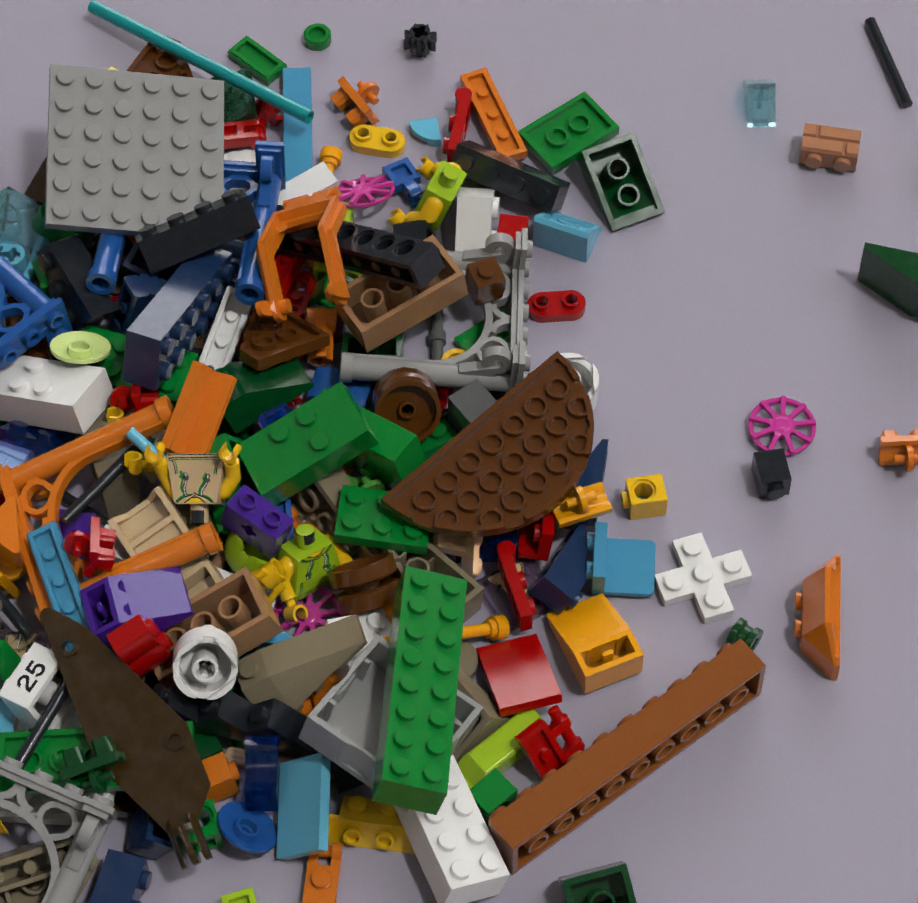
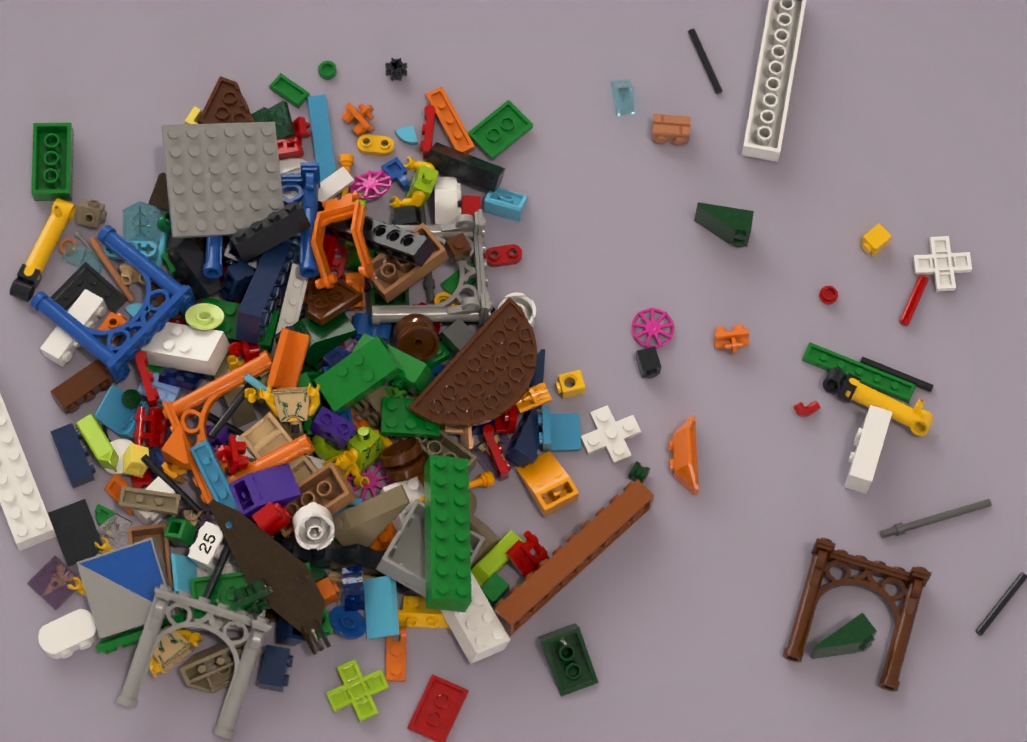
camera: 10 degrees left, 10 degrees up
(201, 61) = (253, 98): teal piece -> none
(519, 675) = (503, 510): red tile -> none
(620, 182) = (537, 165): dark green slope -> none

